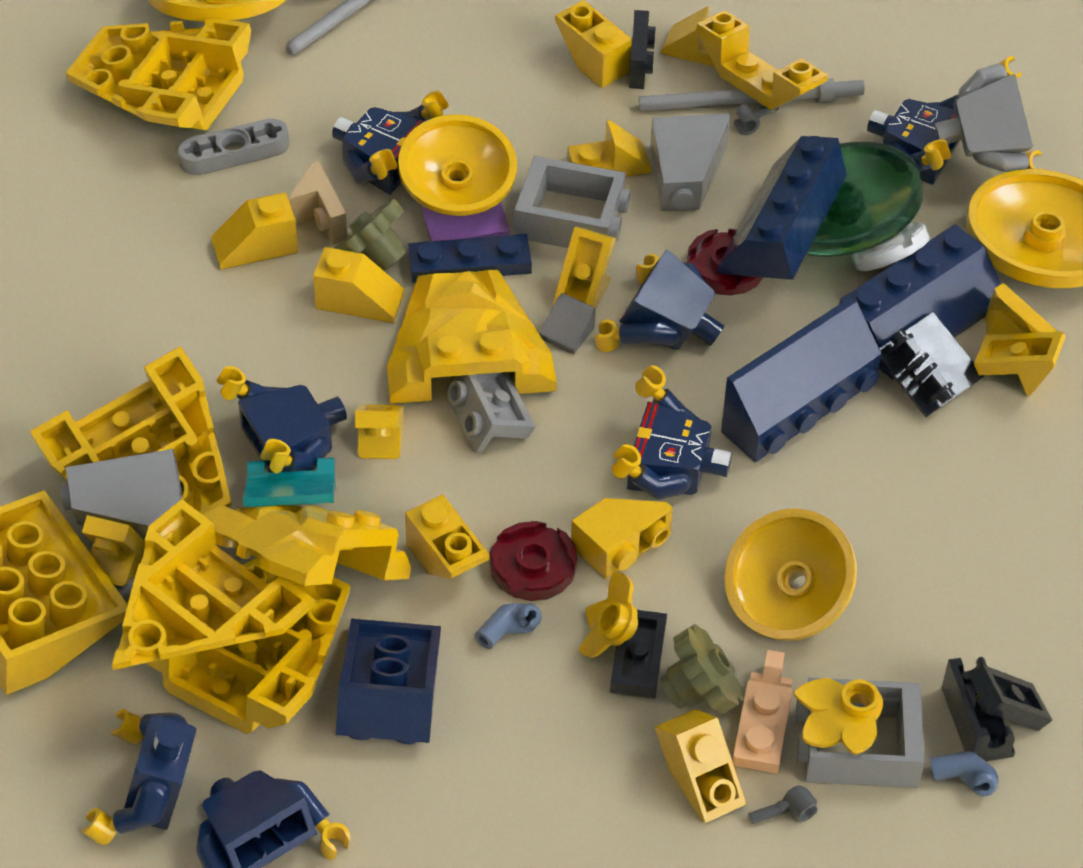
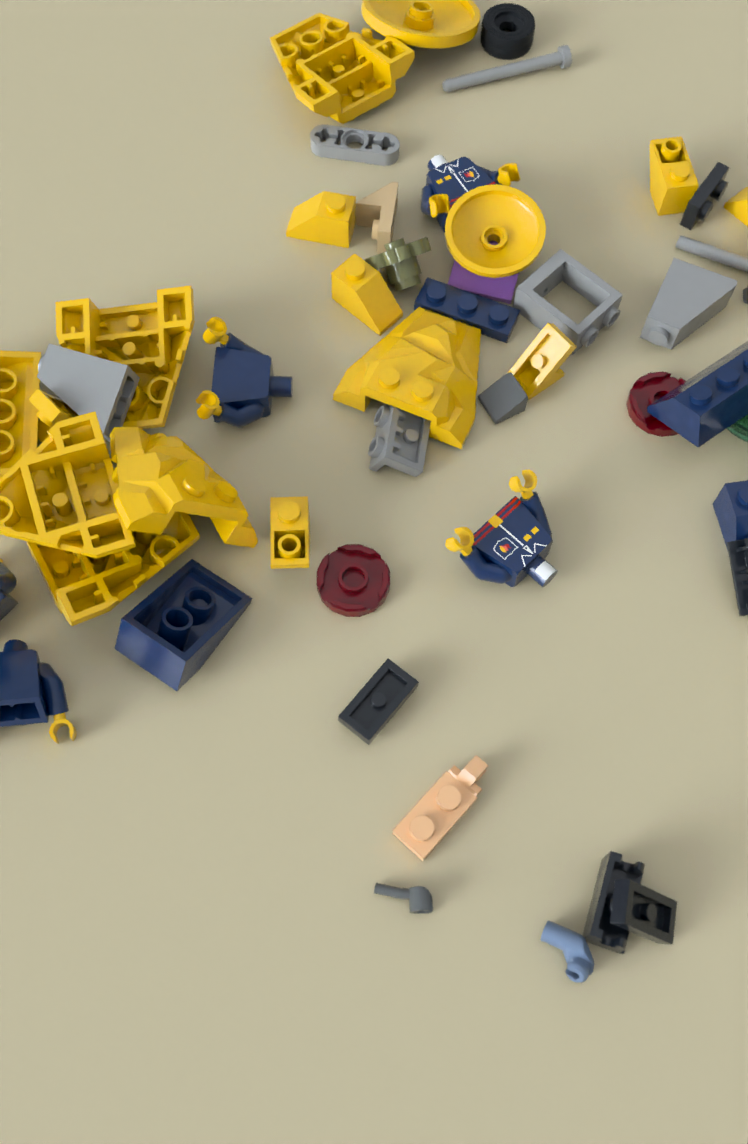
camera: 30 degrees right, 15 degrees up
(289, 487) = (204, 438): teal flag -> none
(379, 430) = (309, 415): yellow slope -> none
(508, 619) = (302, 620): sand blue arm -> none
(611, 619) = (372, 666): yellow plate -> none
(618, 152) = (629, 277): yellow slope -> none
(619, 531) = (429, 592): yellow slope -> none
(664, 308) = (584, 421): torso -> none
(701, 673) = (411, 749): olive plant -> none
(701, 763) = (362, 824): yellow slope -> none
(776, 553) = (511, 696): yellow dish -> none
(800, 381) = (651, 538): slope -> none
(836, 718) = (481, 855): yellow plate -> none
(900, 770) = (554, 857): light grey window -> none

